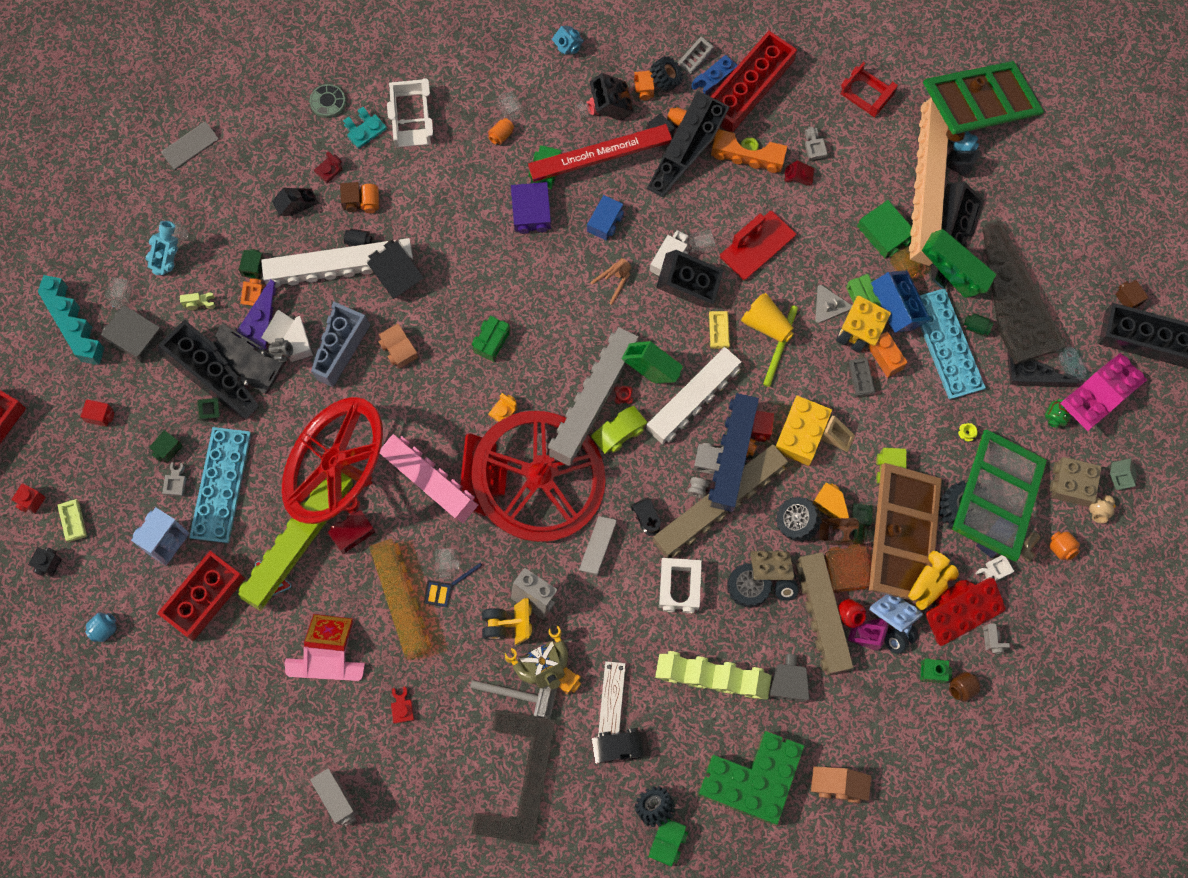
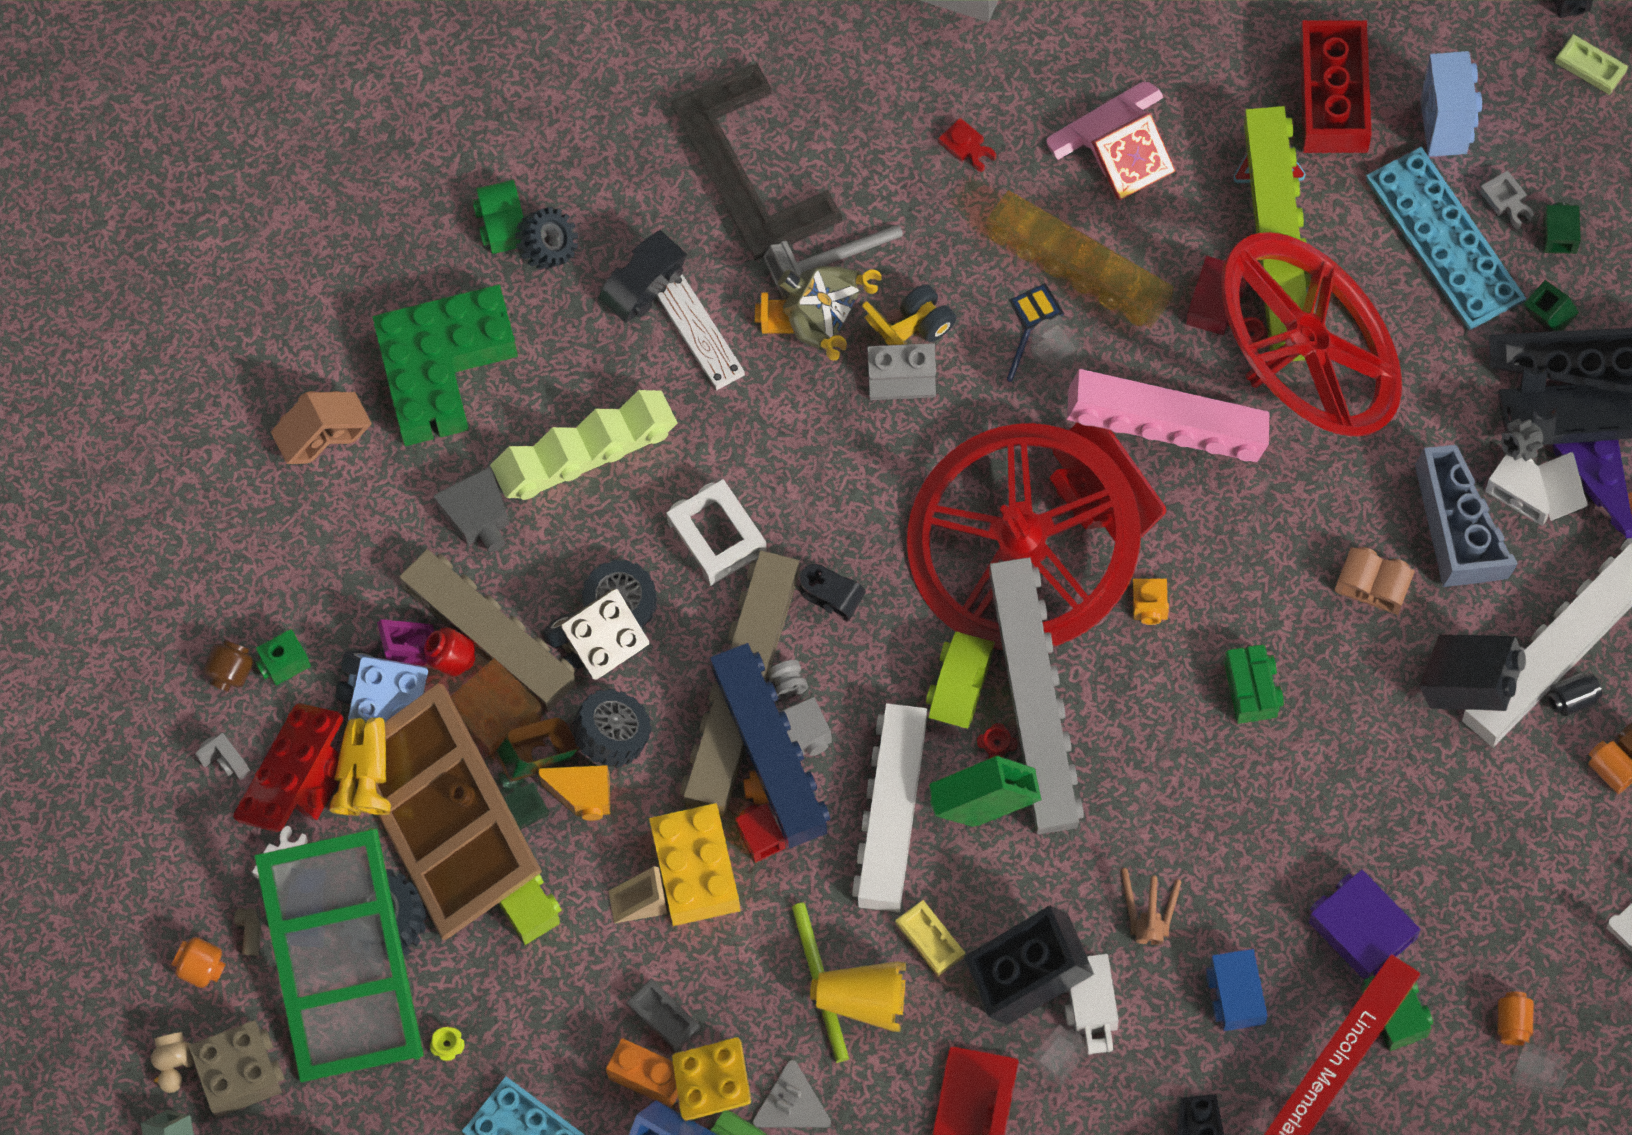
camera: 150 degrees right, 5 degrees down
(598, 546) = (869, 510): light grey slope -> none

